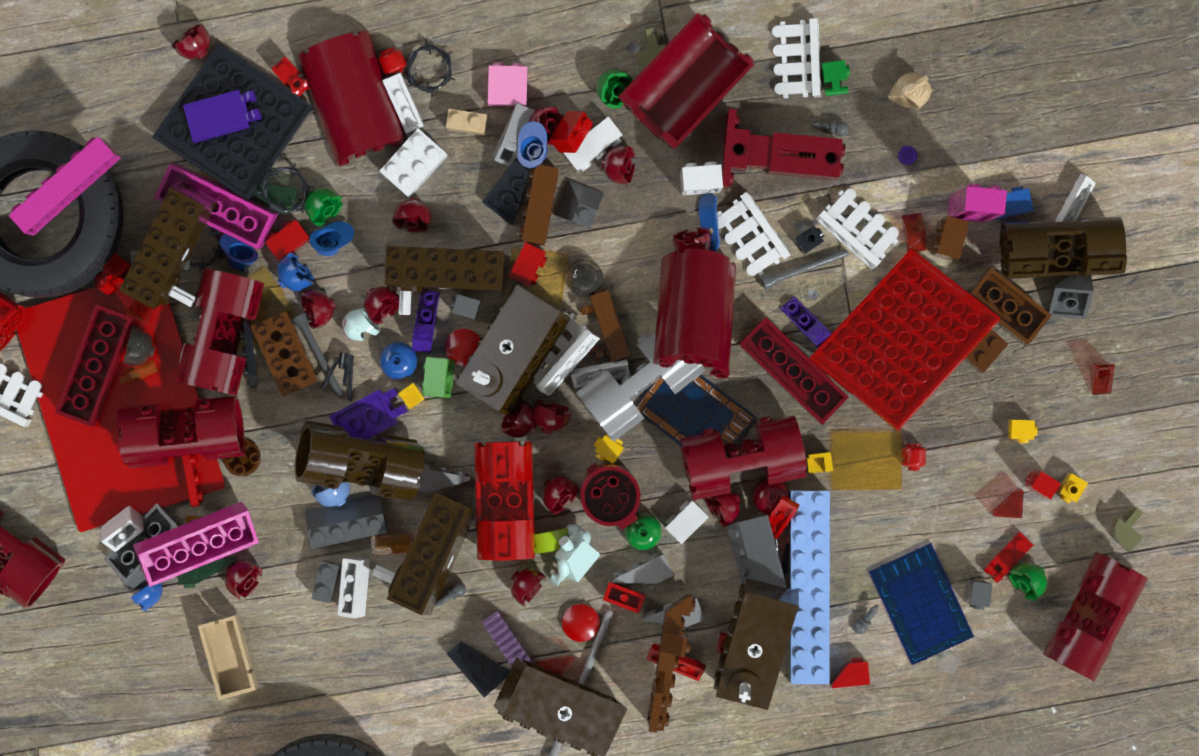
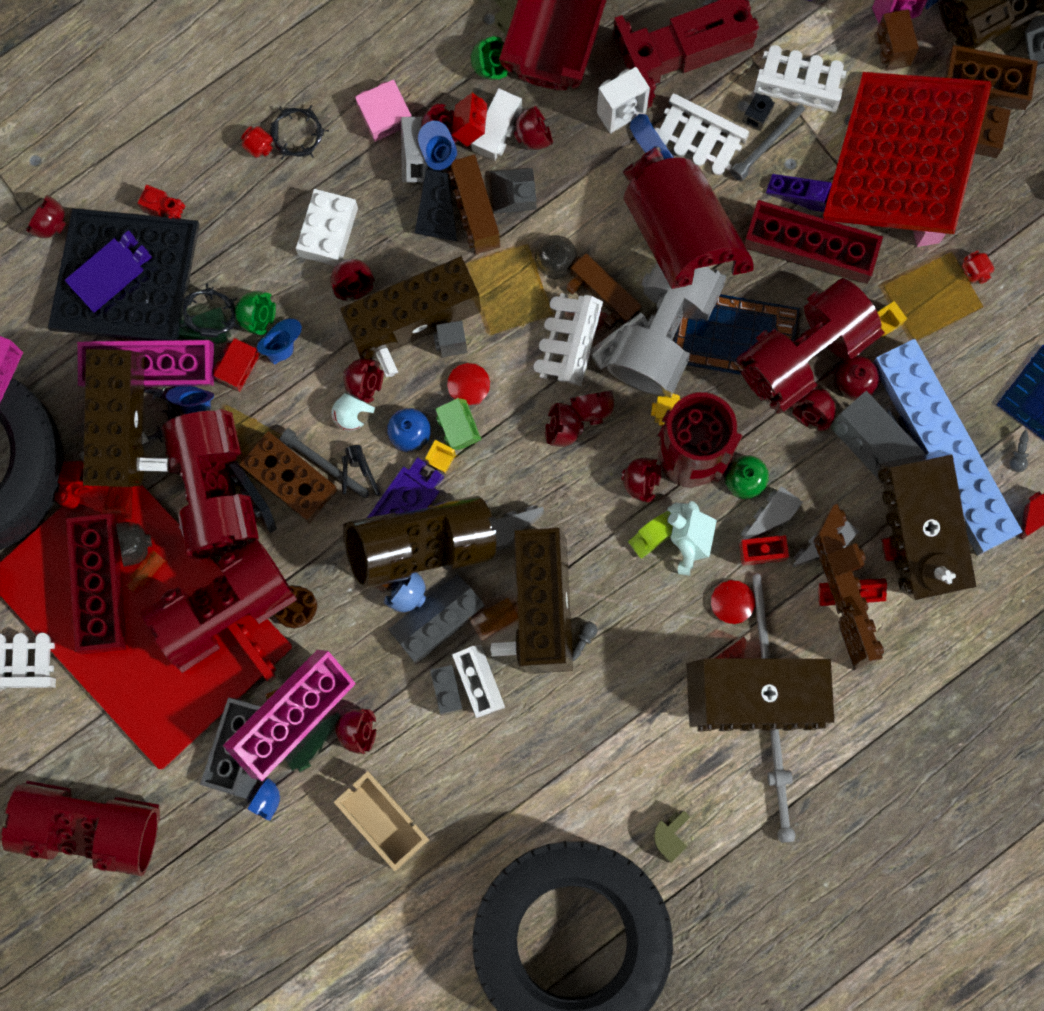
camera: 25 degrees left, 10 degrees down
(122, 528) = (204, 741): white brick -> none
(294, 274) = (258, 394): blue cylinder -> none
(317, 307) = (299, 415): dark red cylinder -> none
(351, 96) = (229, 194): dark red cylinder -> none
(403, 102) = (287, 174): white plate -> none
(425, 321) = (417, 377): dark purple slope -> none
(466, 122) = (360, 163): tan brick -> none
(477, 668) = (651, 703): black wing -> none
(504, 500) = (590, 508): red cylinder -> none
(505, 638) = (661, 657): lavender gear -> none
(512, 350) = (521, 355): dark brown piece -> none
(526, 584) = (656, 588): dark red cylinder -> none
(528, 264) = (492, 269): red brick -> none
(686, 521) = (786, 444): white brick -> none
(782, 515) = (881, 383): red plate -> none
(914, 232) = (858, 55): clear red slope -> none

